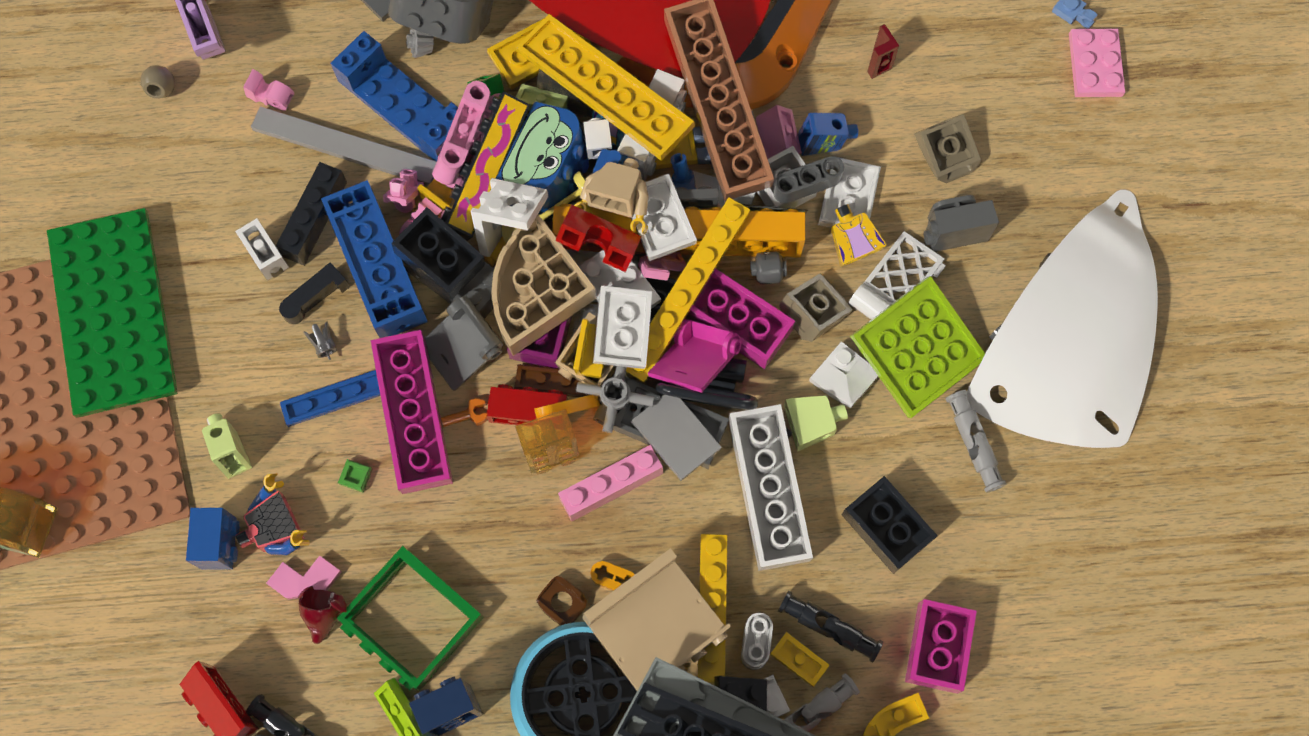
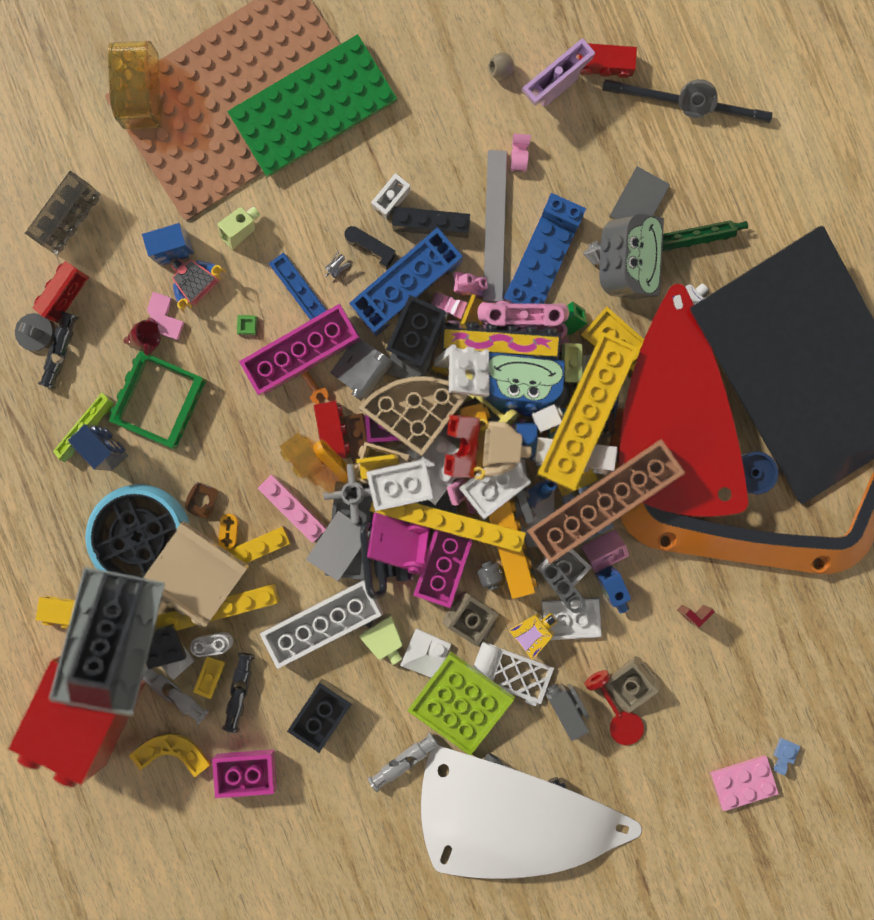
camera: 75 degrees right, 15 degrees up
(116, 666) = (63, 213): none -> clear smoke brick
(645, 534) = (261, 545): none -> yellow plate
(996, 170) = (625, 727): none -> red piece

